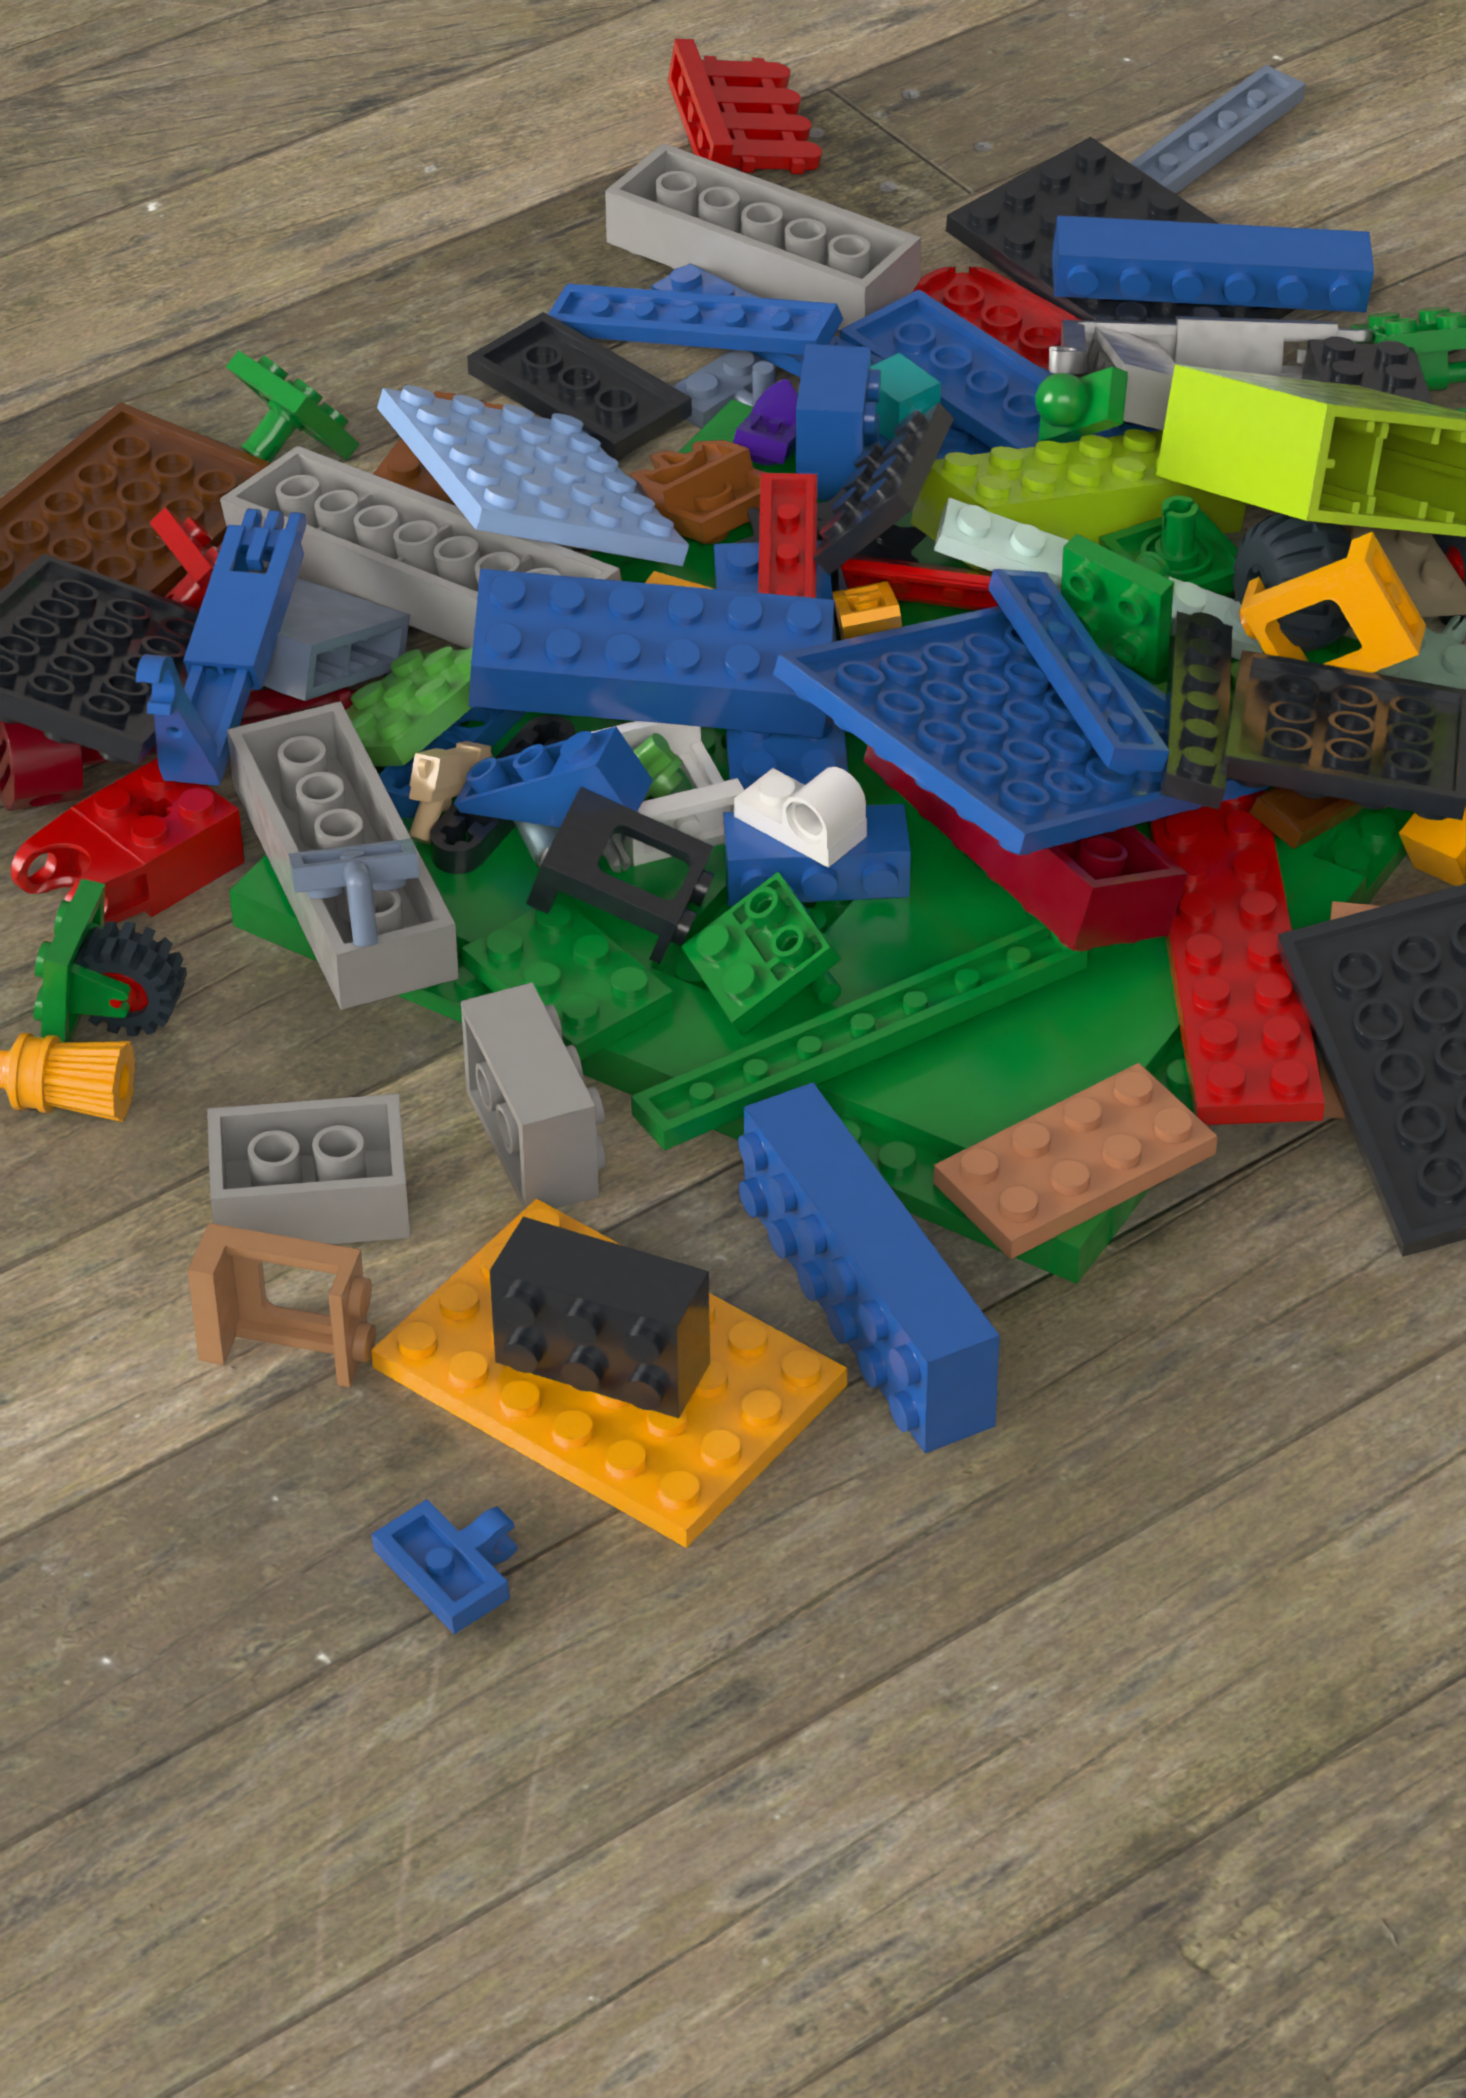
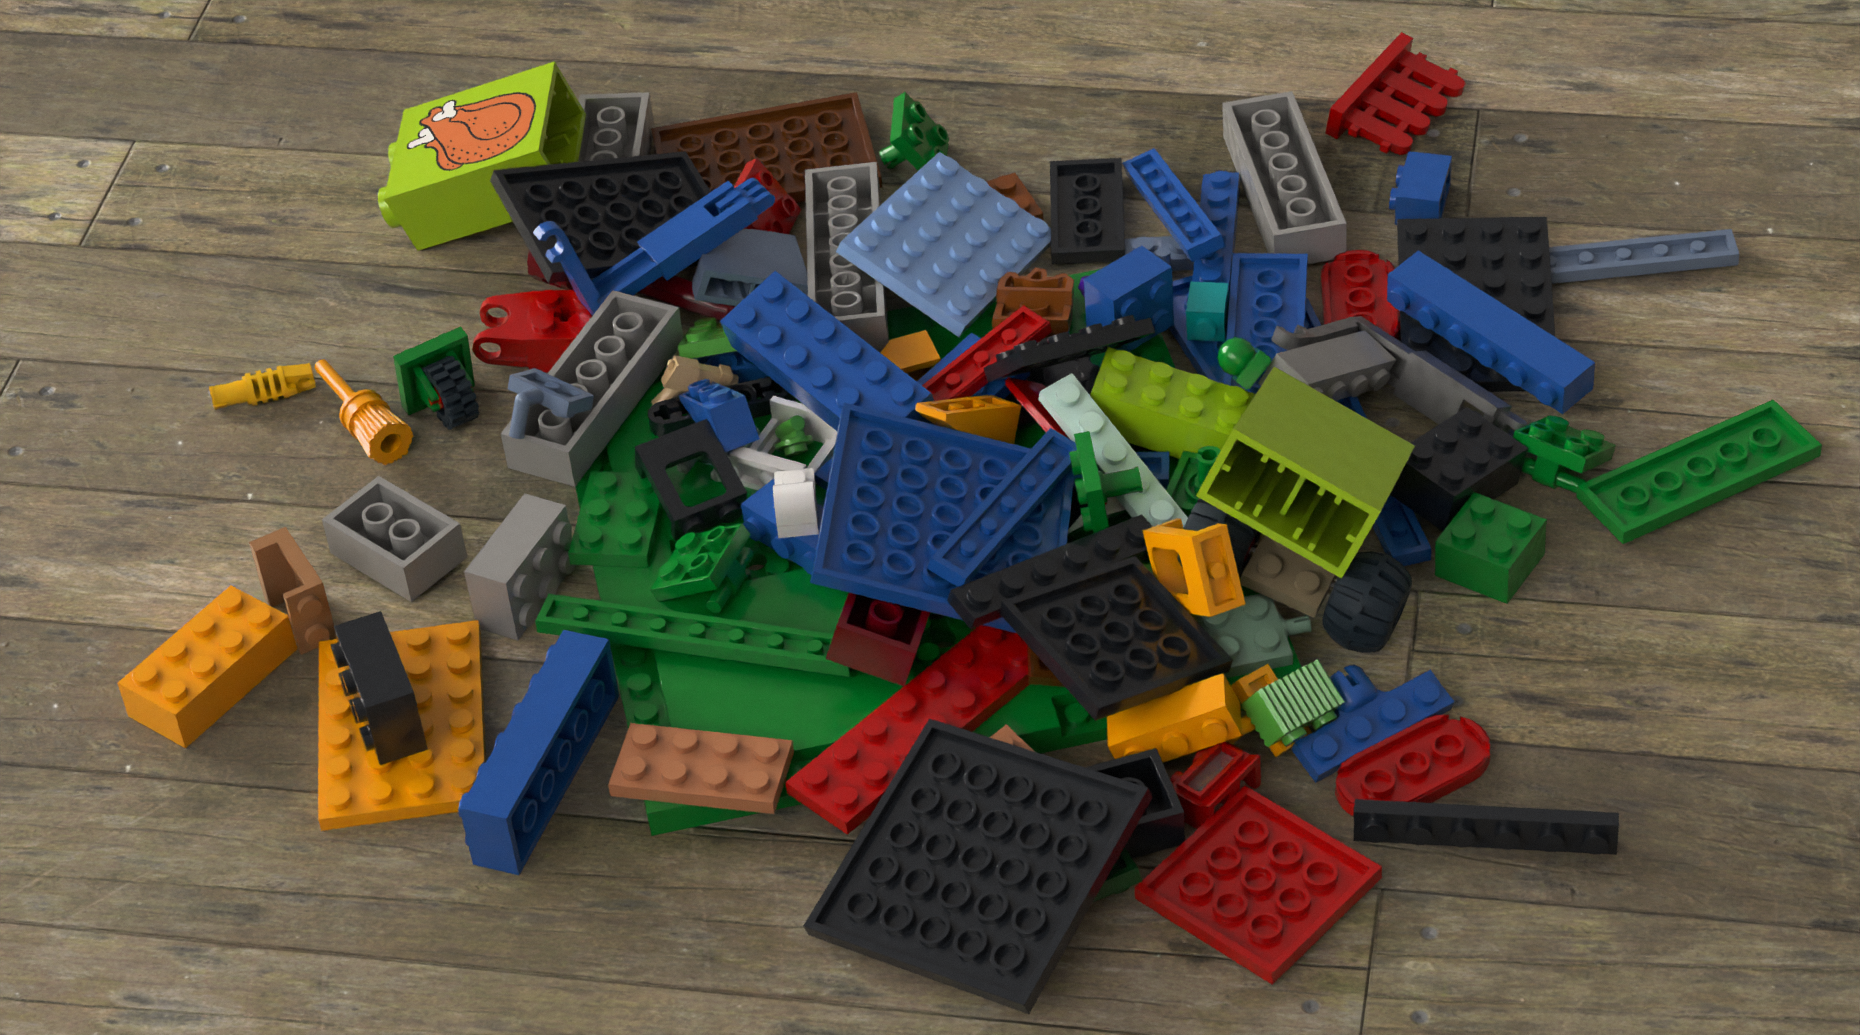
camera: 50 degrees right, 0 degrees up
(280, 1467) = (207, 666): none -> light orange brick
(449, 1566) = (212, 757): blue plate -> none
(910, 181) = (1421, 186): none -> blue brick

